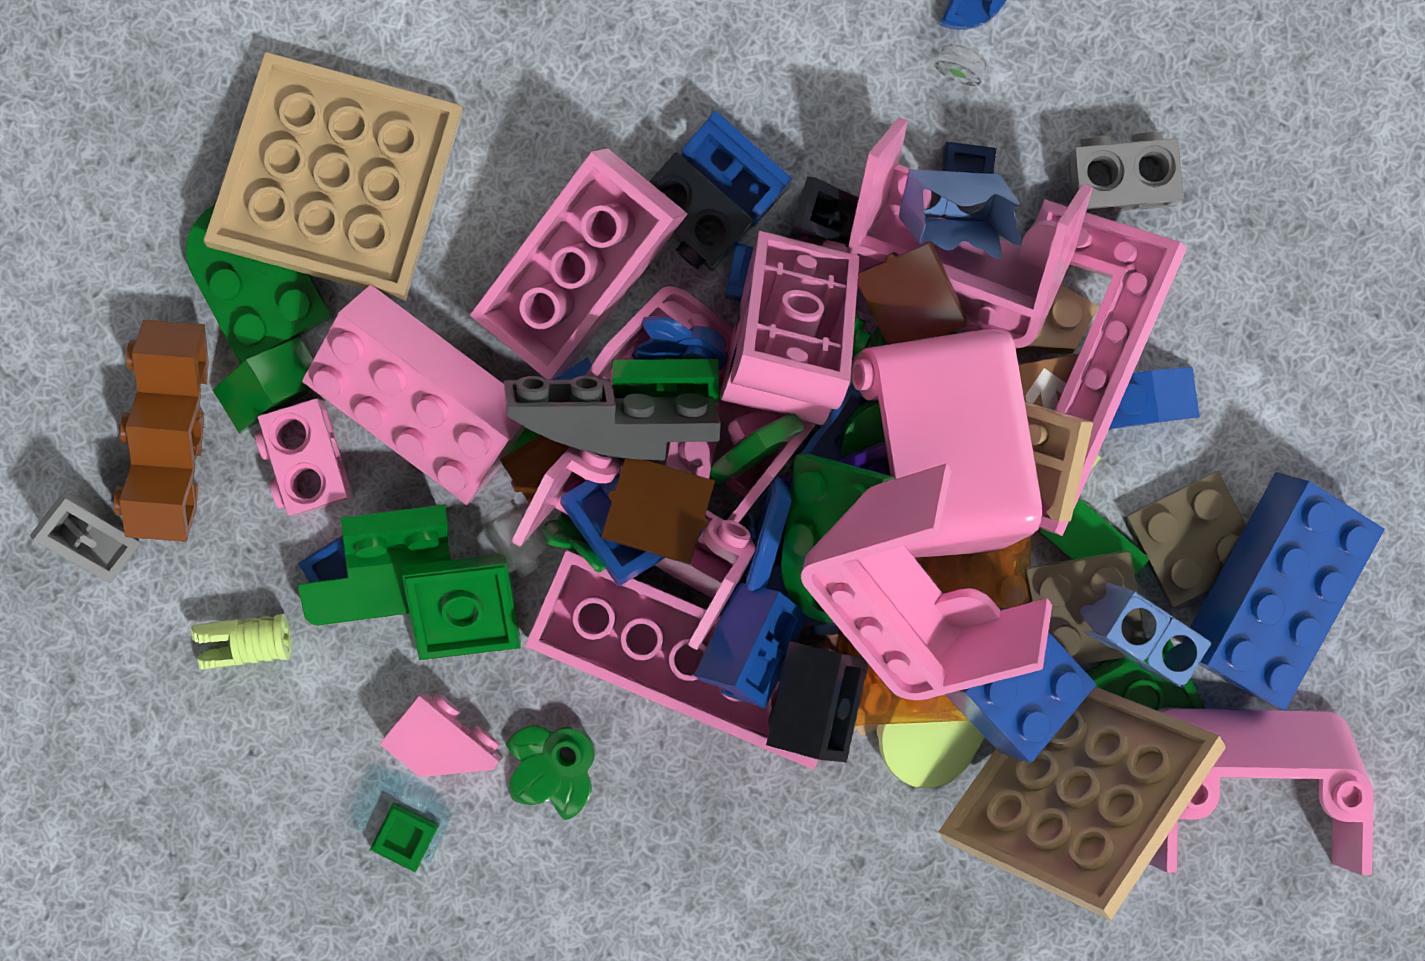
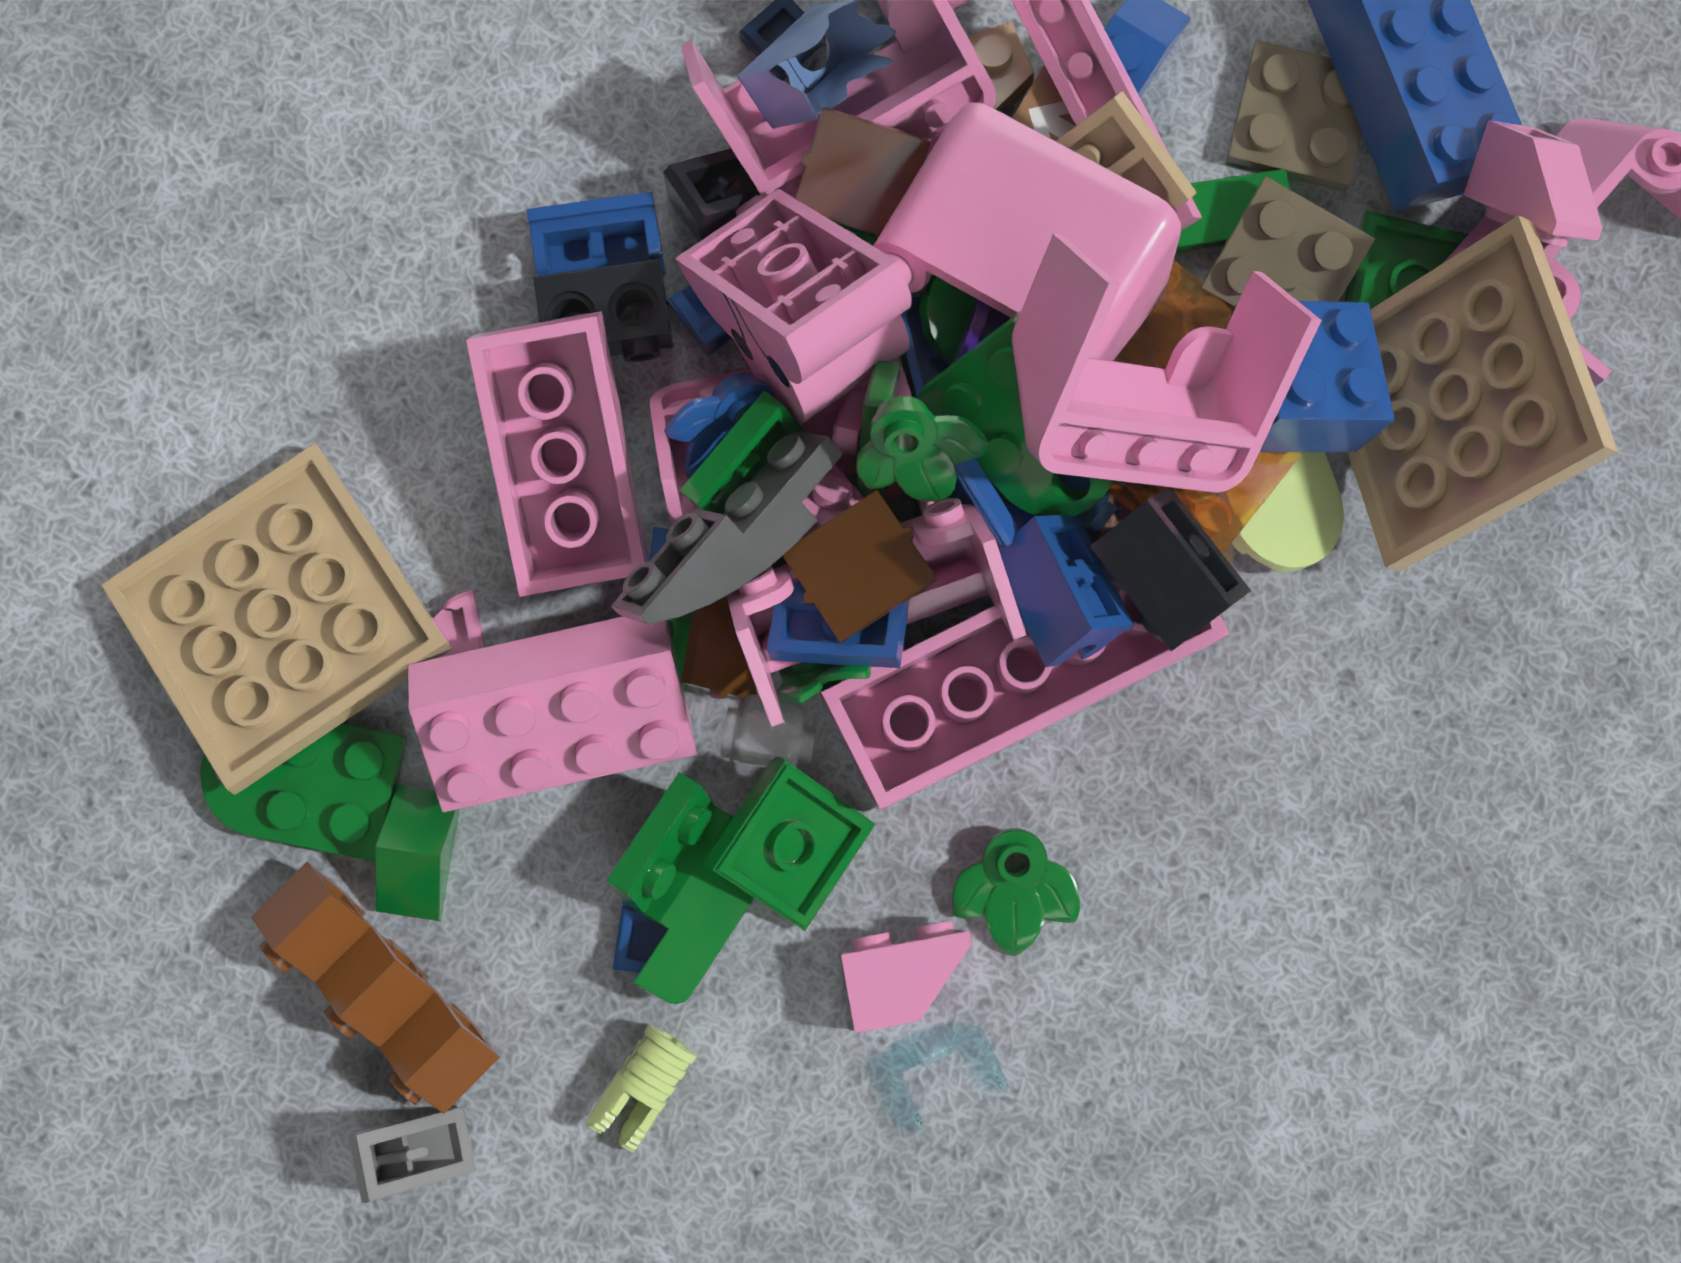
camera: 50 degrees left, 5 degrees down
(317, 452) = (523, 862): bright pink brick -> none
(404, 837) = (963, 1090): green tile -> none
(427, 291) = (461, 623): none -> bright pink tile
(756, 486) = (917, 449): none -> green plate
(1107, 617) = (1315, 233): medium blue piece -> none
(1258, 726) = (1536, 178): none -> bright pink slope

